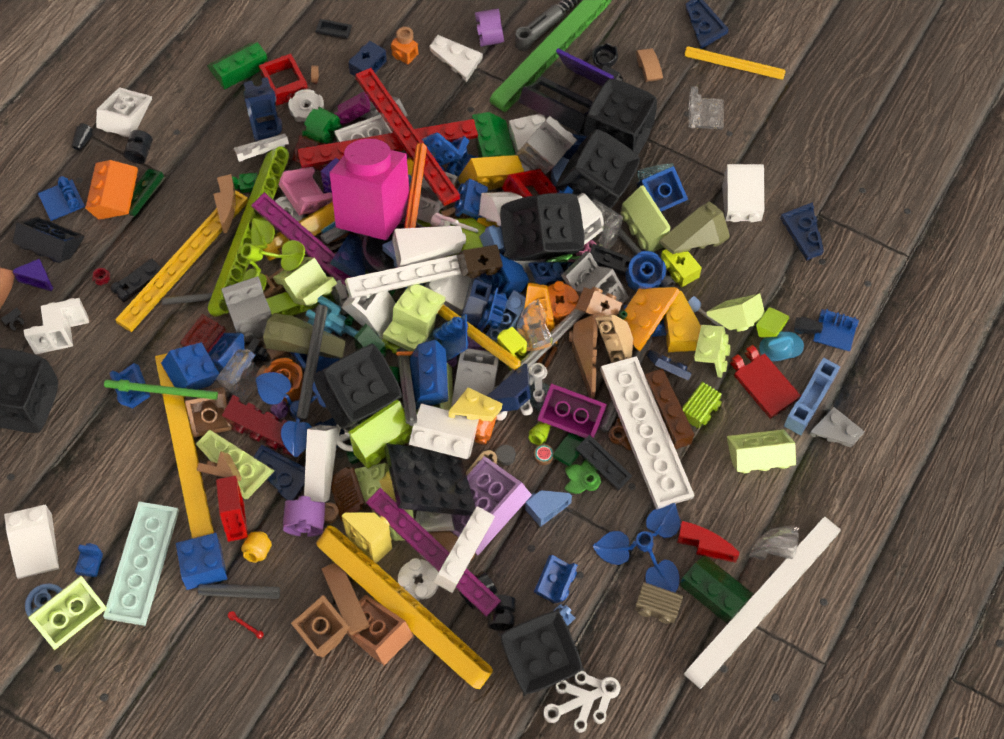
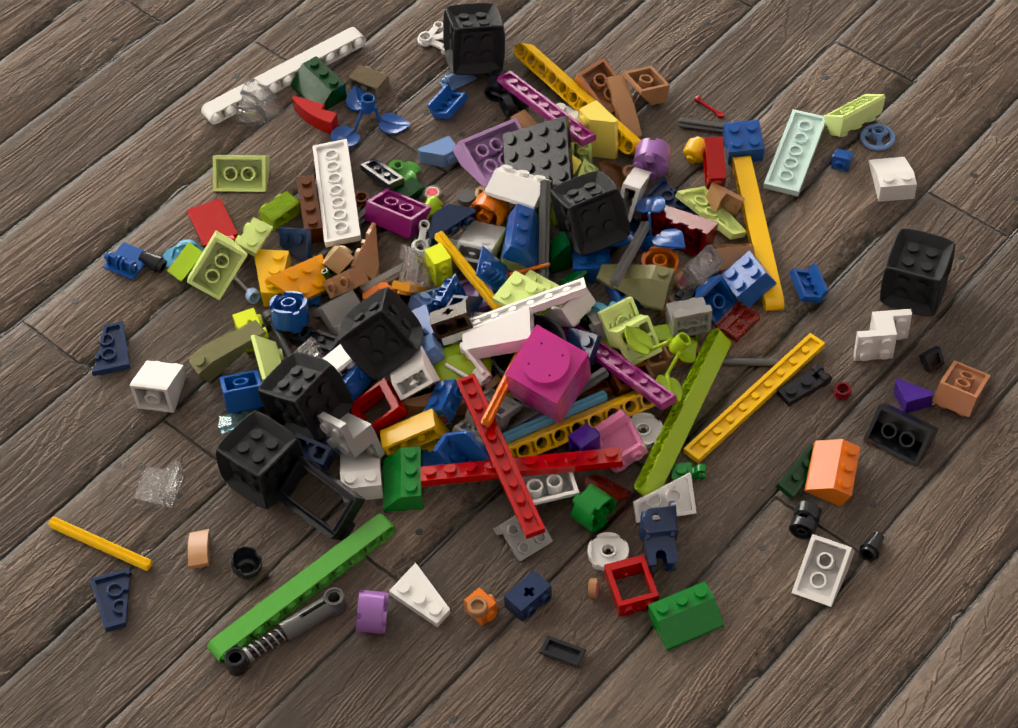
camera: 165 degrees left, 10 degrees down
(61, 199) = (890, 478): blue hinge -> none
(126, 385) = (811, 270): bright green bar -> none
(225, 201) = (707, 435): medium nougat slope -> none
(353, 108) = (558, 530): magenta bracket -> none
(464, 549) = (518, 95): white brick -> none
(475, 406) = (485, 198): light yellow wing -> none
(587, 70) = (273, 521): dark purple piece -> none
(812, 396) = (194, 190): medium blue arch -> none
(838, 429) = (167, 185): light grey wing -> none

